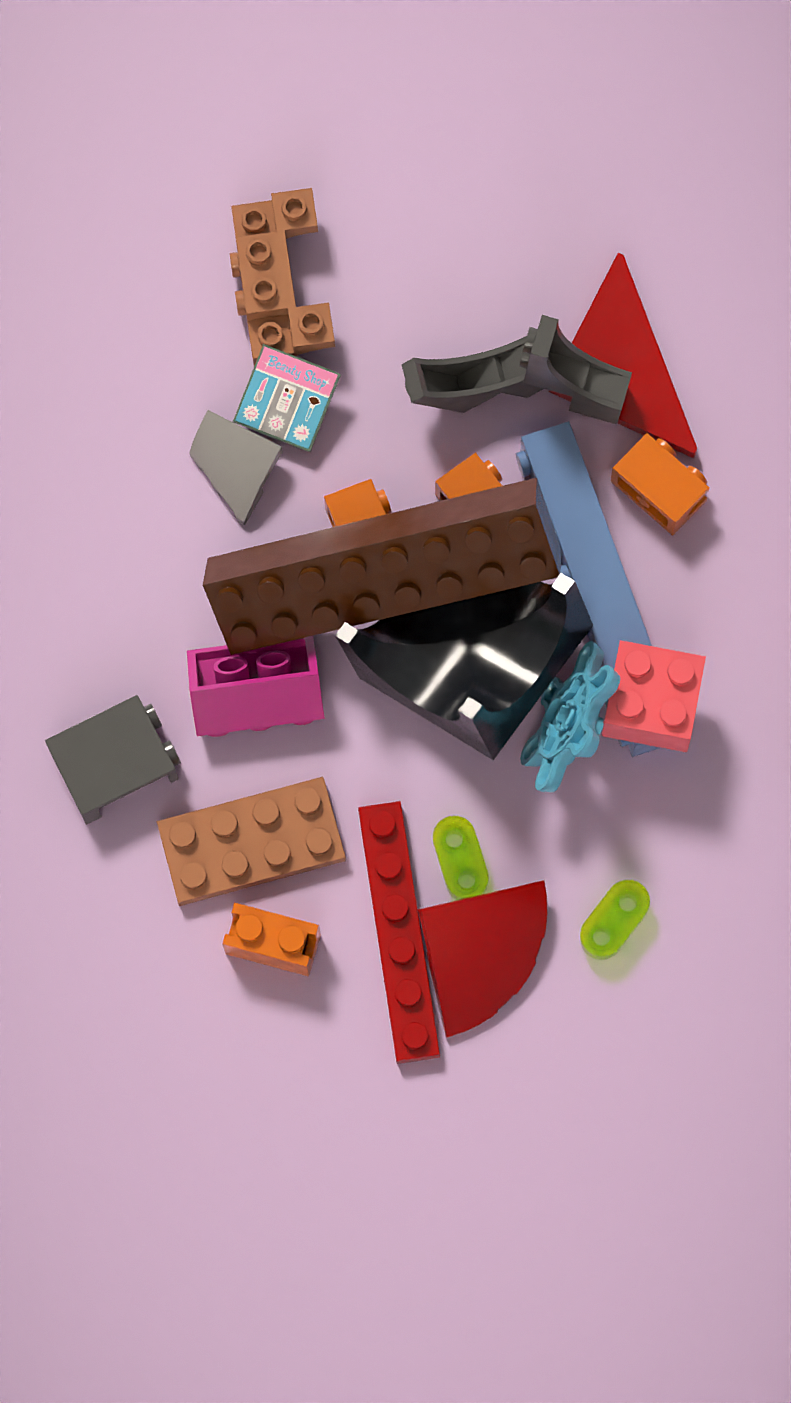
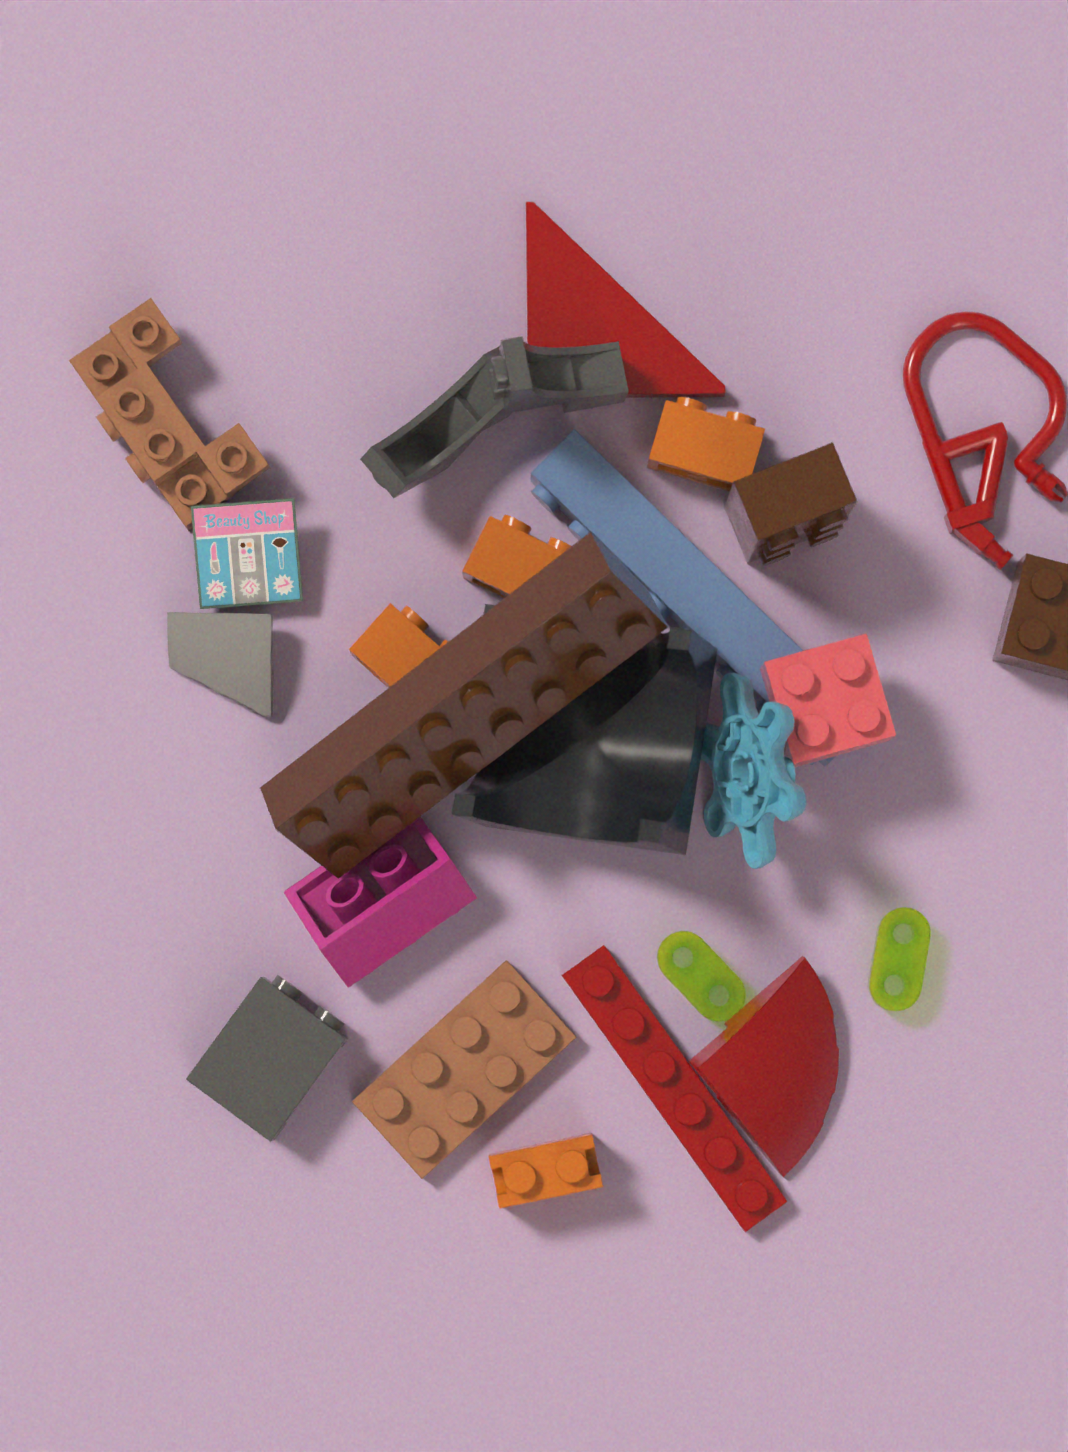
camera: 30 degrees left, 10 degrees up
(698, 545) = (790, 504): none -> reddish brown brick

